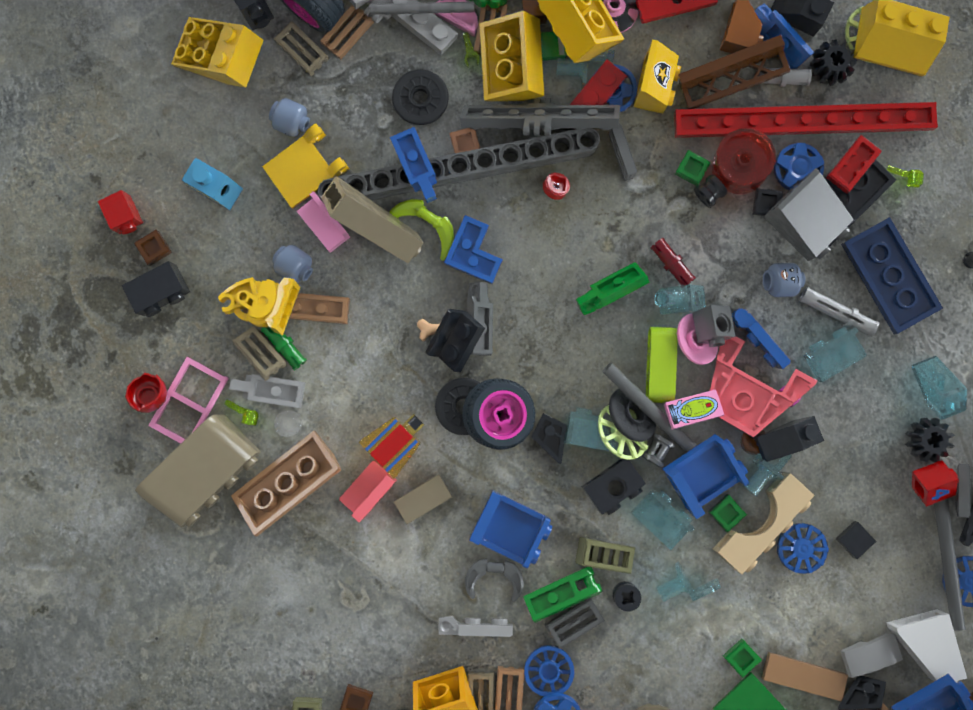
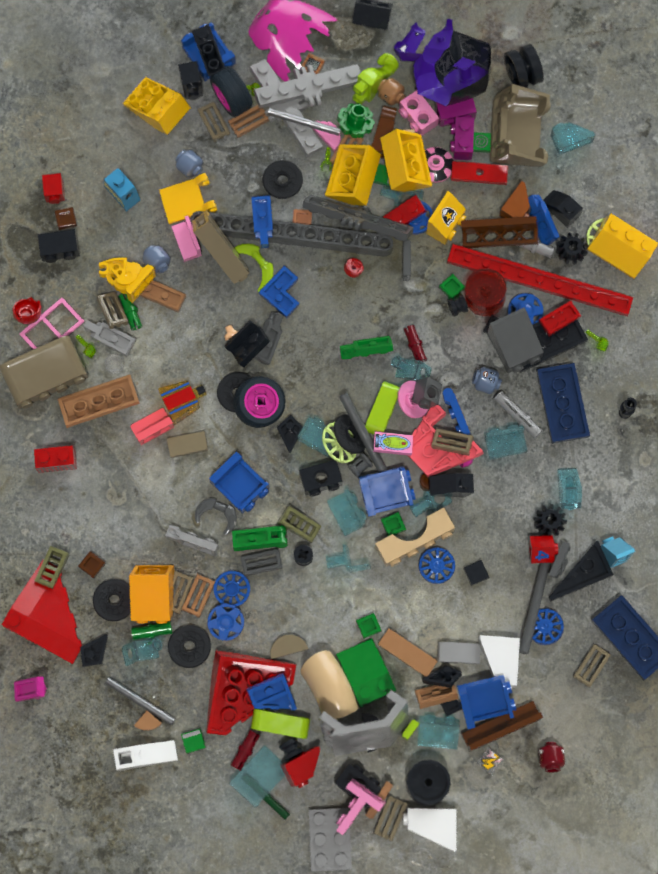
camera: 15 degrees right, 10 degrees down
(257, 582) = (55, 459): none -> red brick
(773, 392) = (453, 449): none -> dark tan tile

